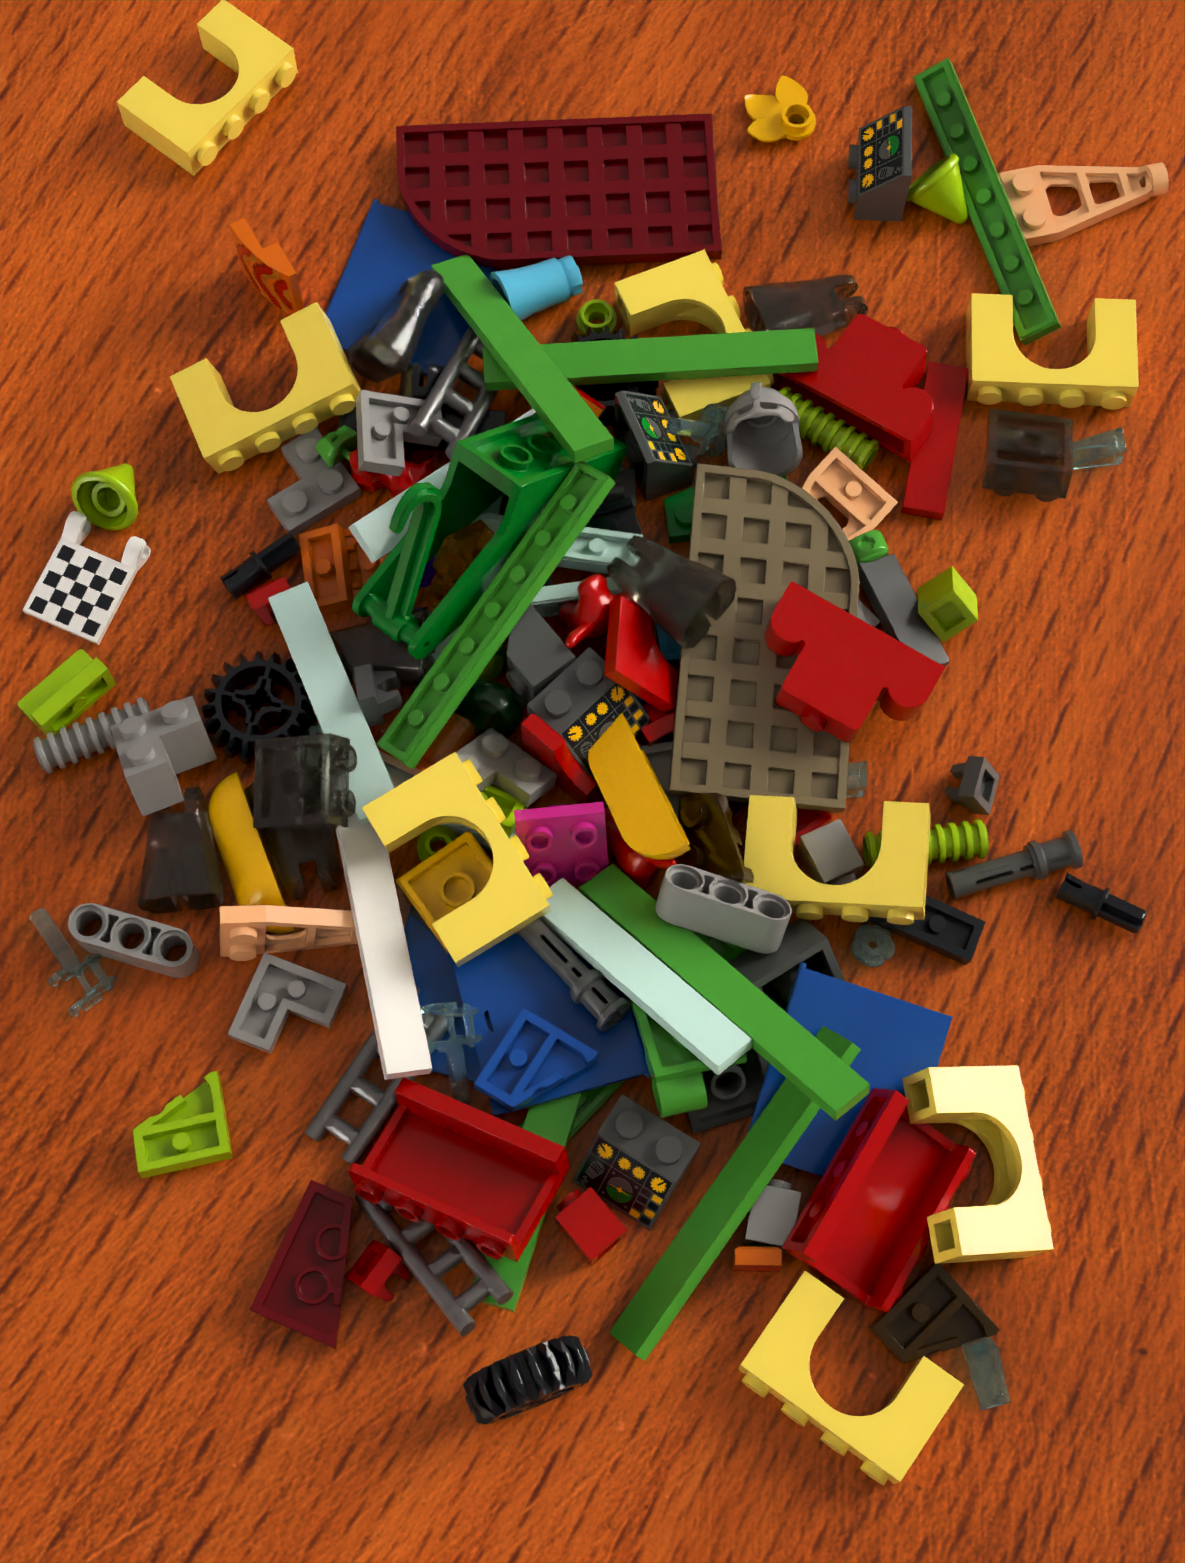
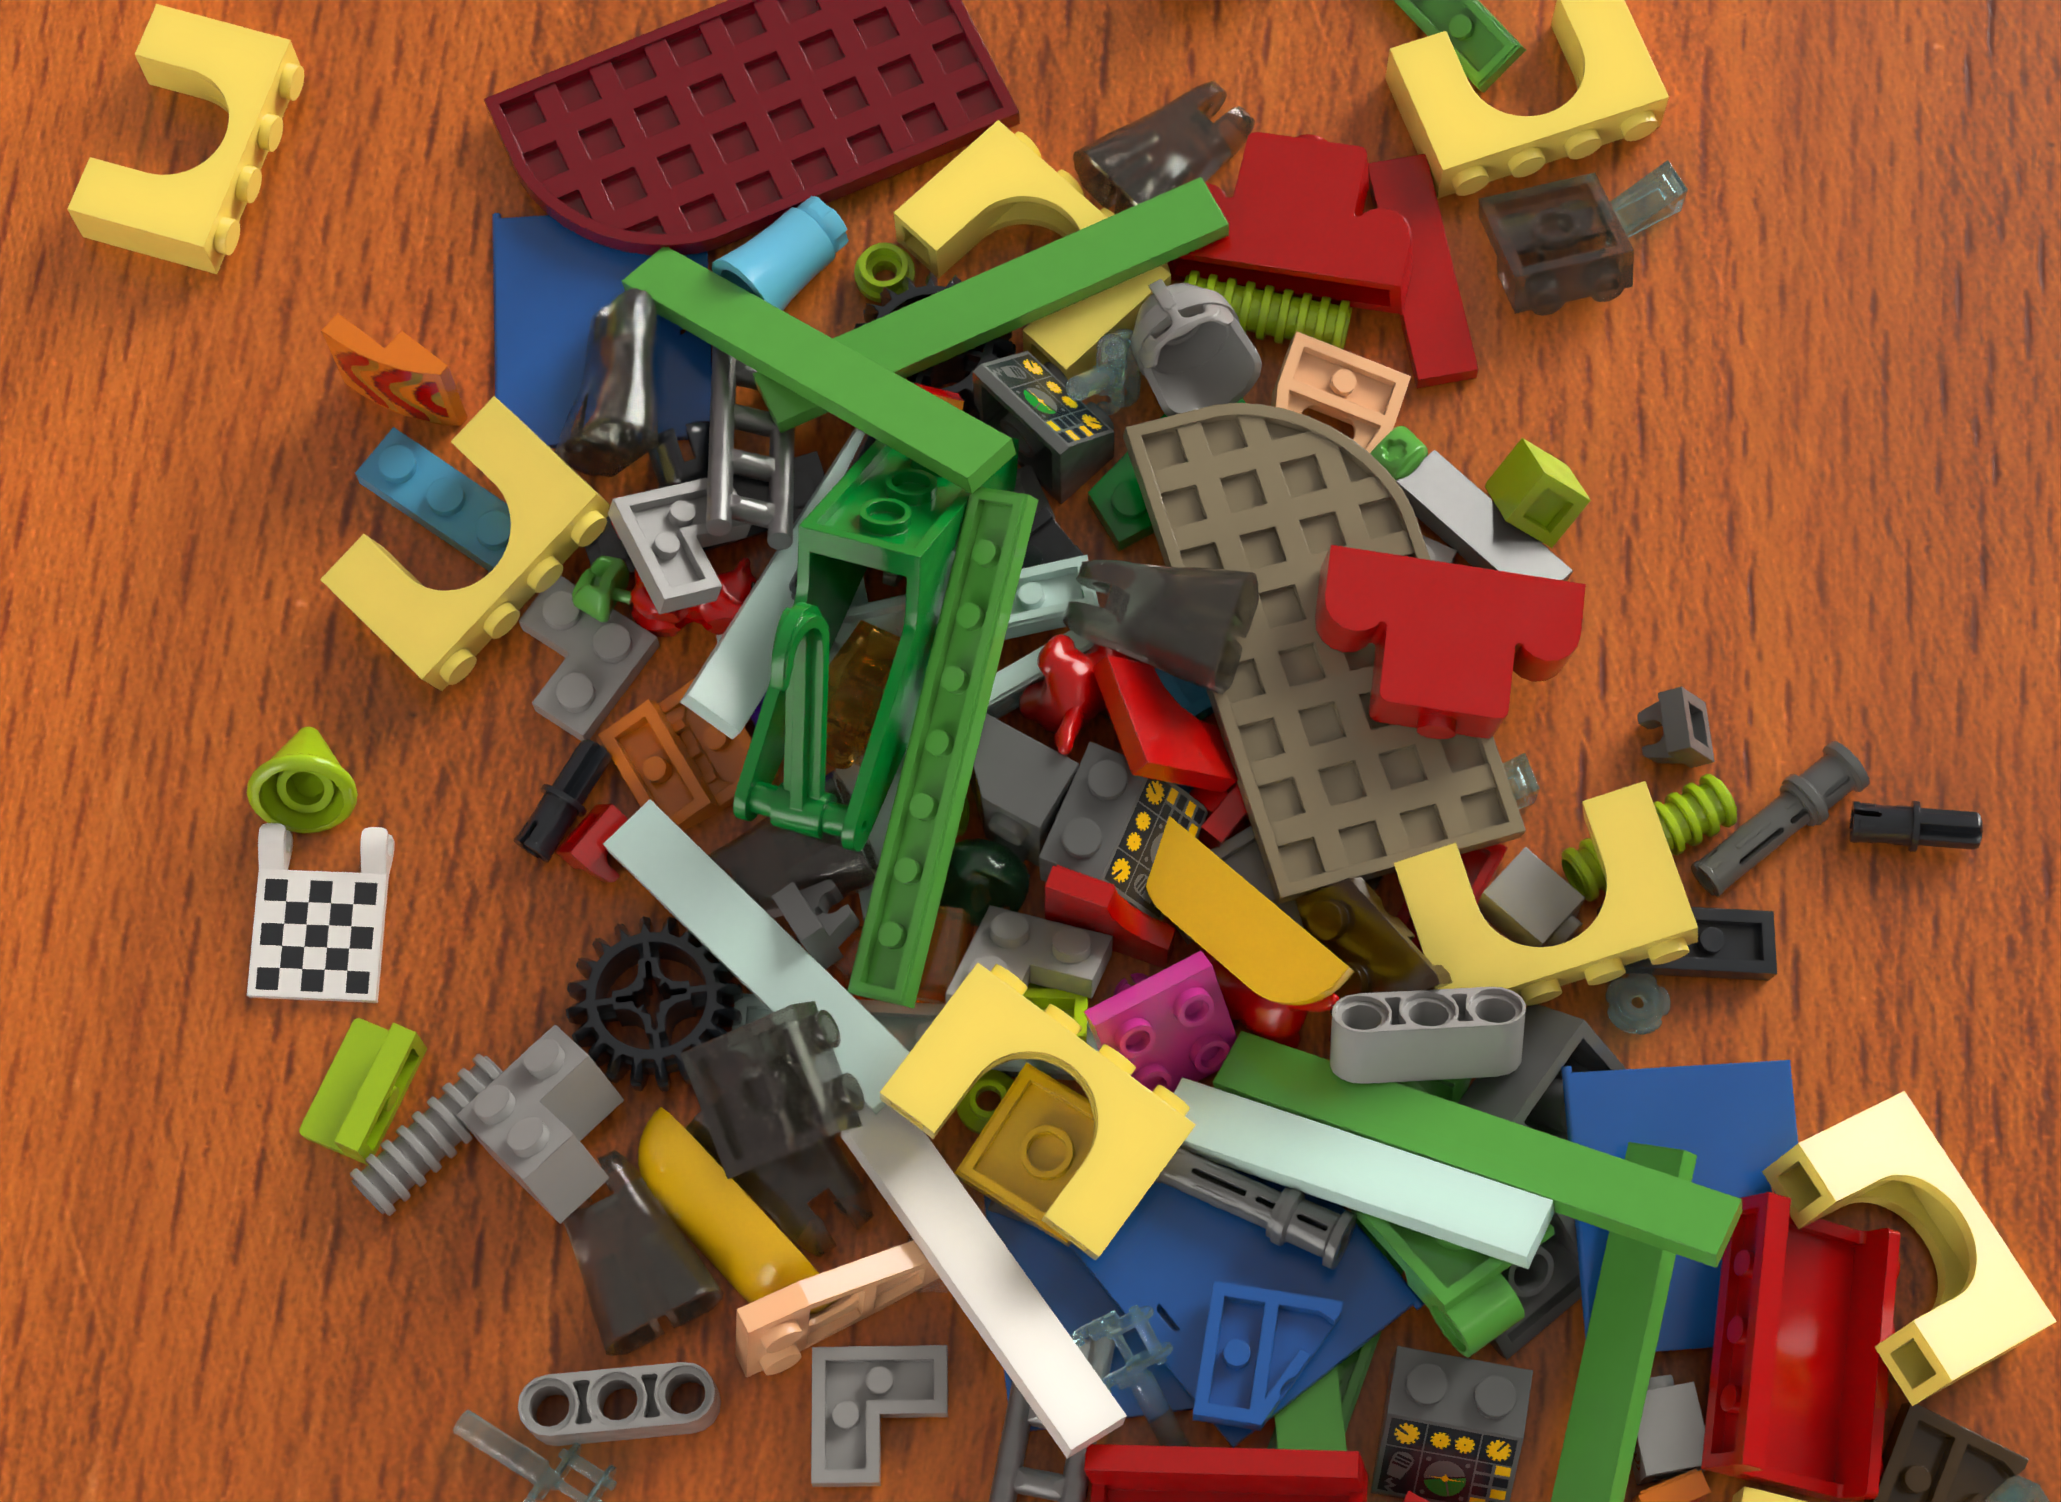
camera: 20 degrees left, 0 degrees up
(262, 352) = (438, 498): none -> dark azure plate

